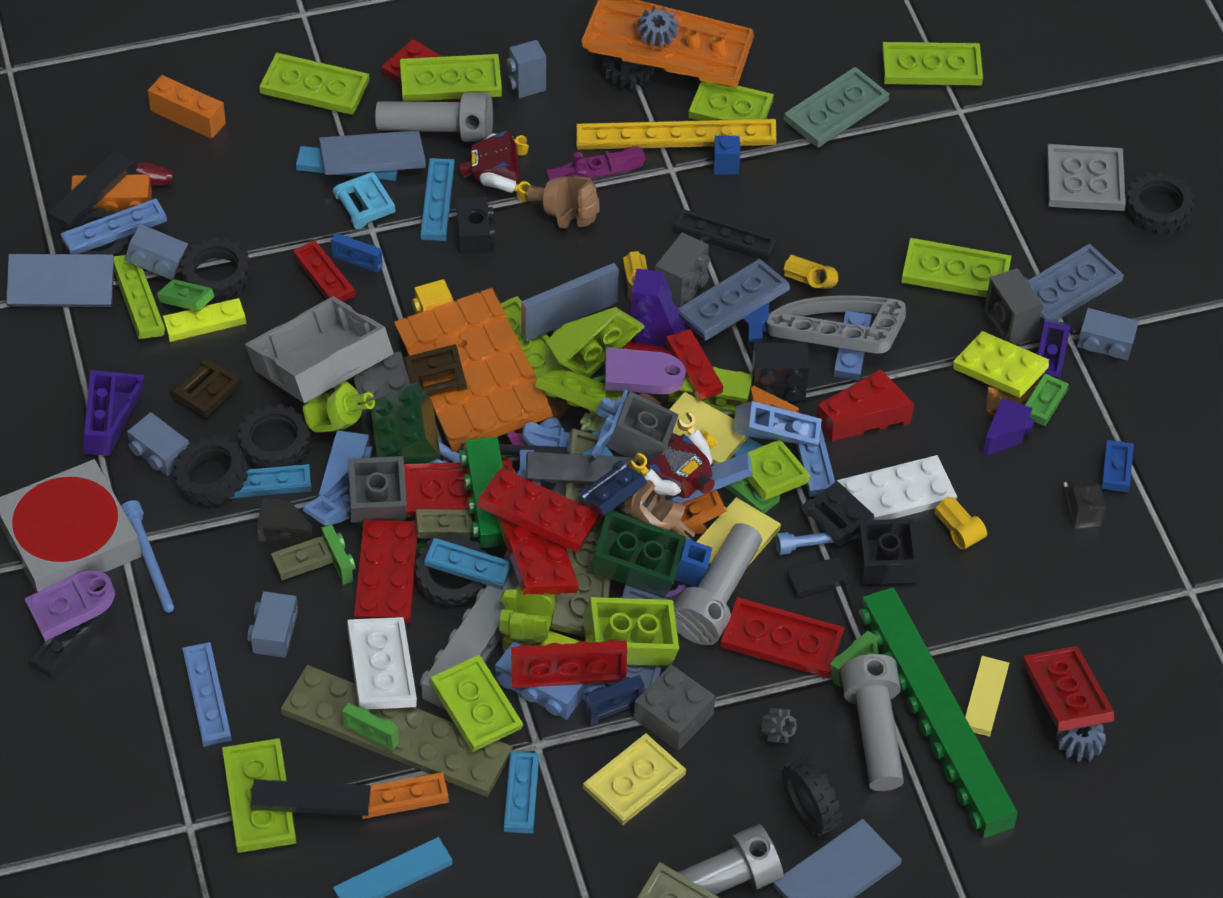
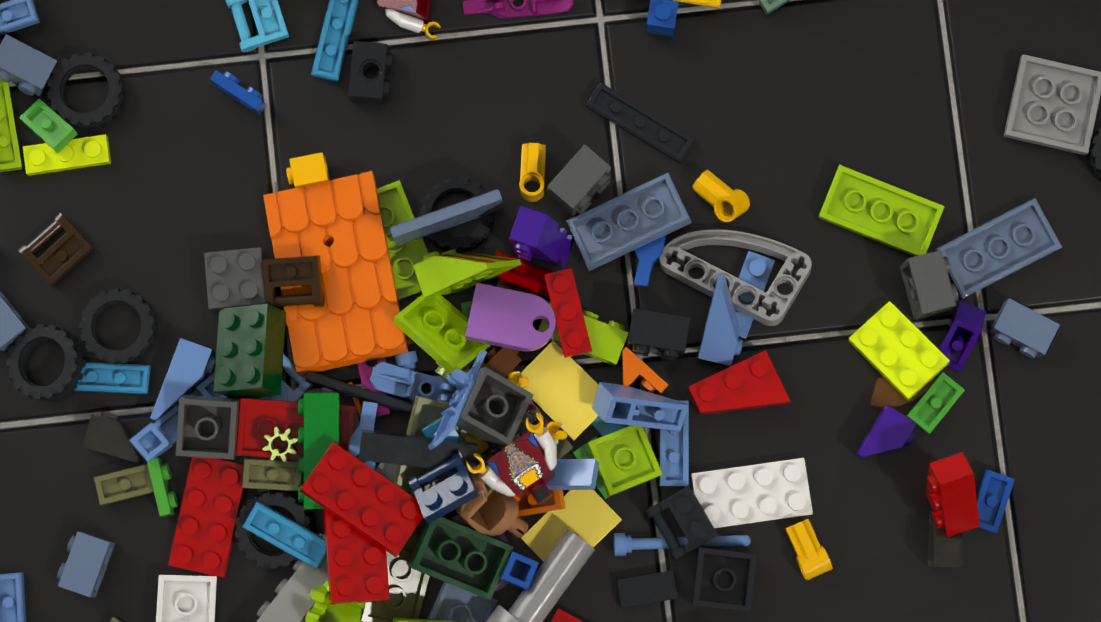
camera: 15 degrees right, 30 degrees up
(319, 349) = (174, 235): light grey tile -> none
(323, 272) = (199, 114): red plate -> none
(336, 408) = (181, 311): lime piece -> none
(448, 490) = (276, 451): none -> yellowish green gear
(568, 199) = (474, 55): medium nougat piece -> none
(836, 361) = (721, 328): none -> medium blue slope
(1079, 441) = (952, 495): none -> red wedge

